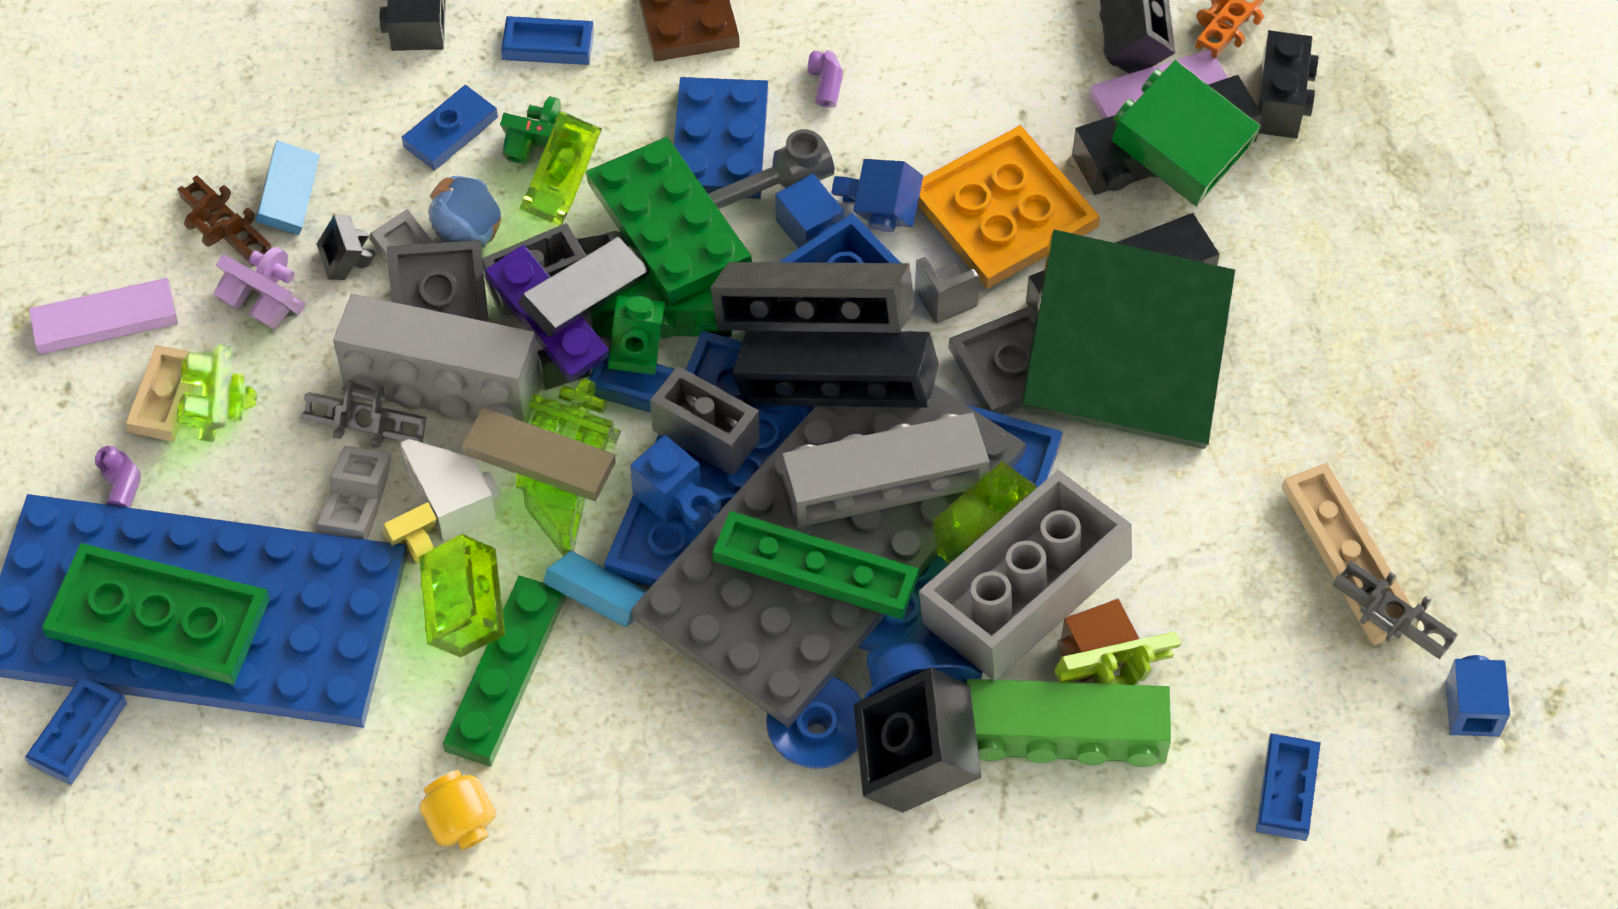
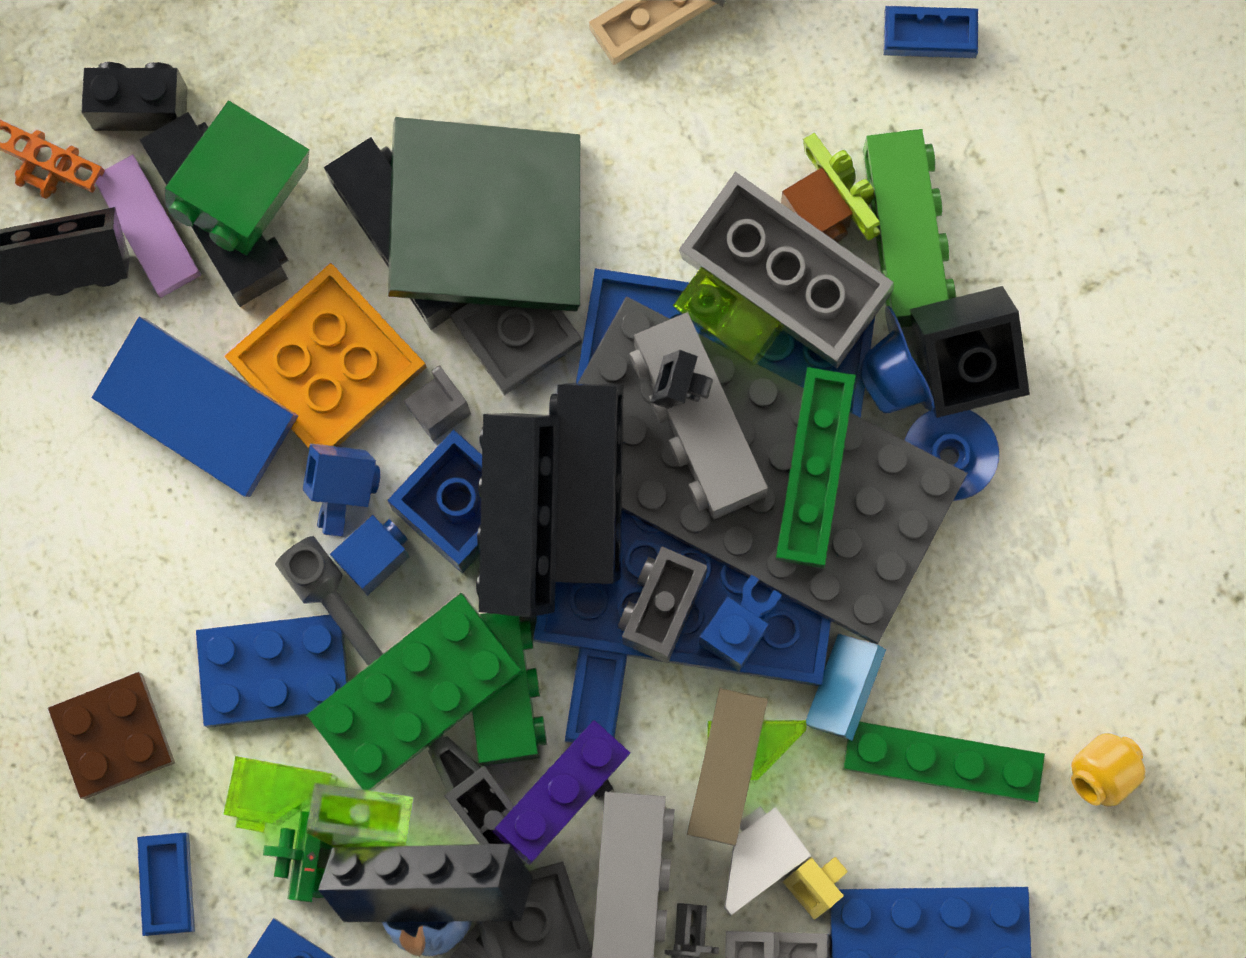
camera: 95 degrees left, 20 degrees up
(461, 595) = (887, 815): clear neon green brick -> none
(489, 197) = (426, 883): none -> black brick
(583, 286) = (535, 754): tile -> none
(591, 428) = (654, 746): clear neon green hips -> none
(615, 107) = (270, 792): none -> clear neon green slope
(636, 334) = (559, 700): green brick -> none
(830, 79) = (178, 564): medium lavender arm -> none
(913, 429) = (678, 382): none -> black tile
(975, 99) = (194, 407): none -> blue tile

